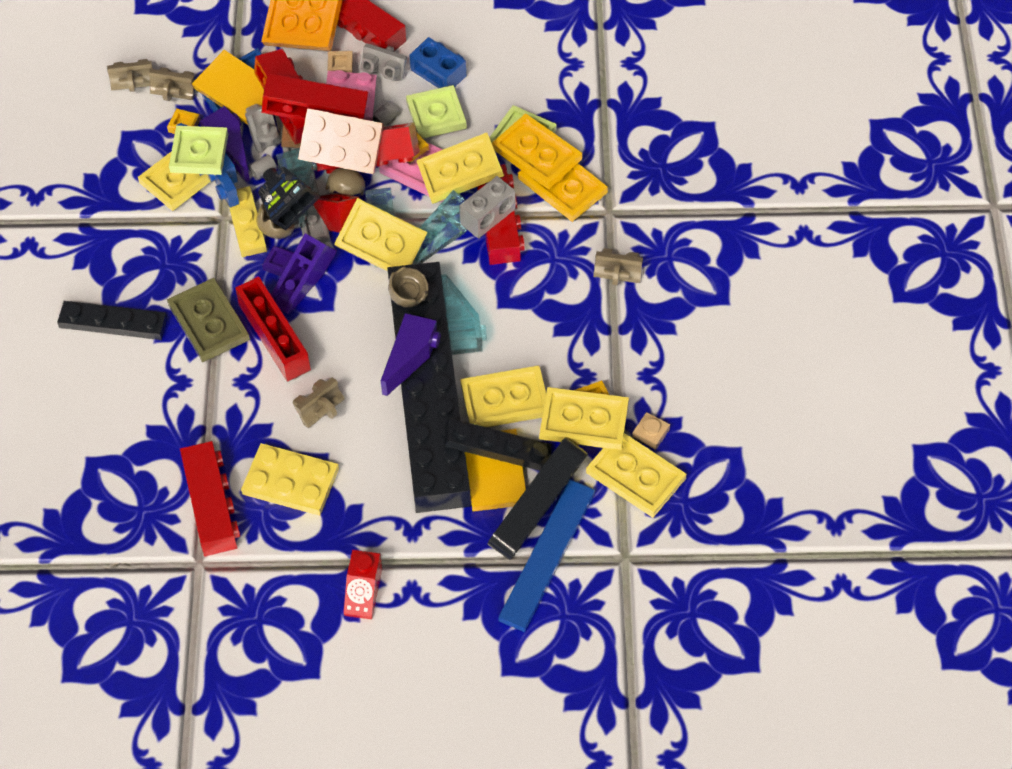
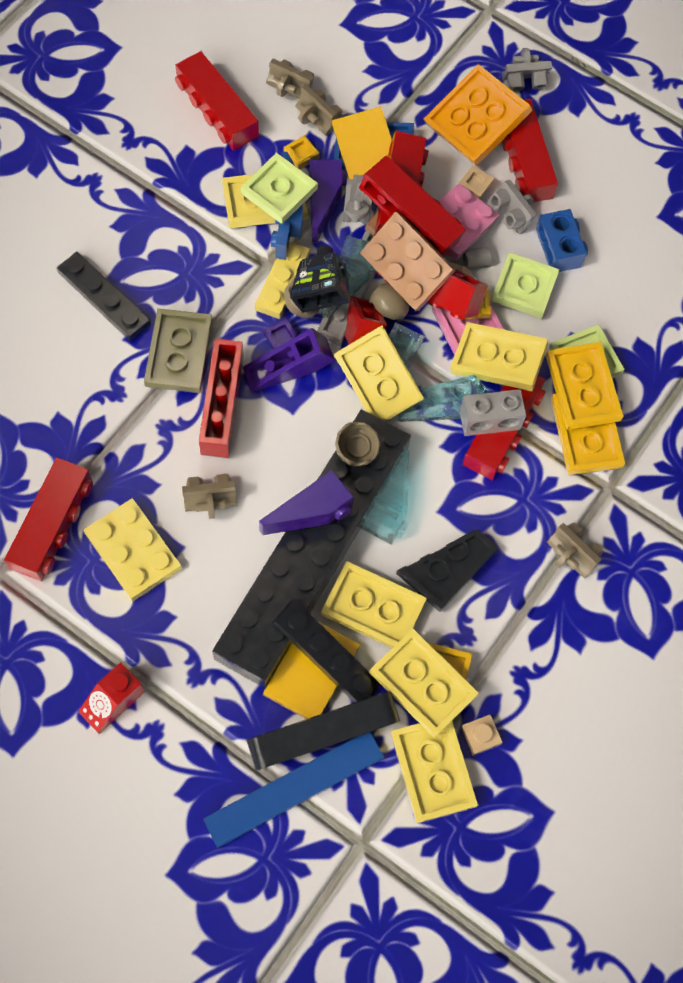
camera: 30 degrees right, 10 degrees up
(84, 124) = (217, 101): none -> red brick
(260, 166) = (334, 237): light grey hinge -> none
(538, 338) = (448, 570): none -> black wing

